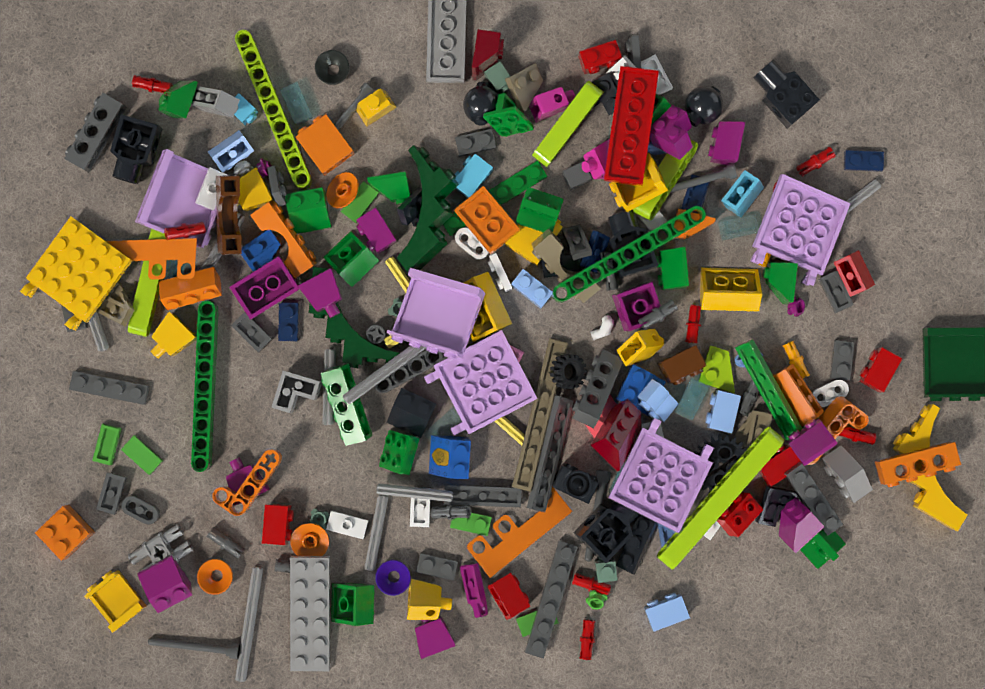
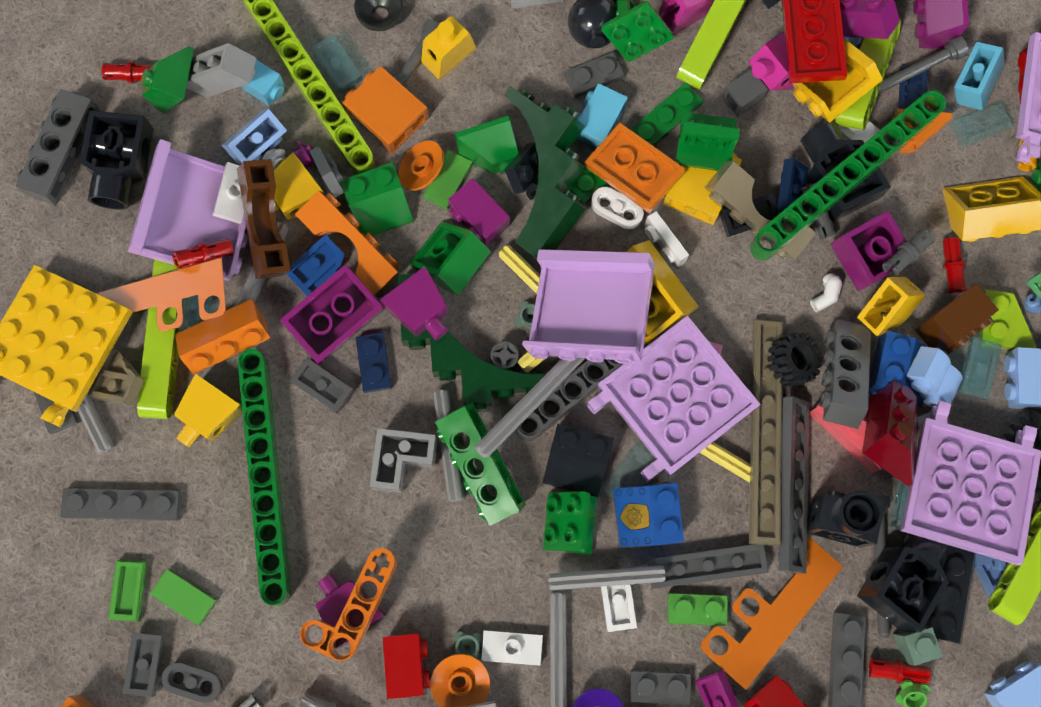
camera: 15 degrees left, 10 degrees down
(451, 512) = (666, 598): dark grey pin -> none
(531, 288) = (716, 253): light blue brick -> none
(576, 242) = (768, 178): dark grey plate -> none
(672, 269) = (913, 190): green slope -> none

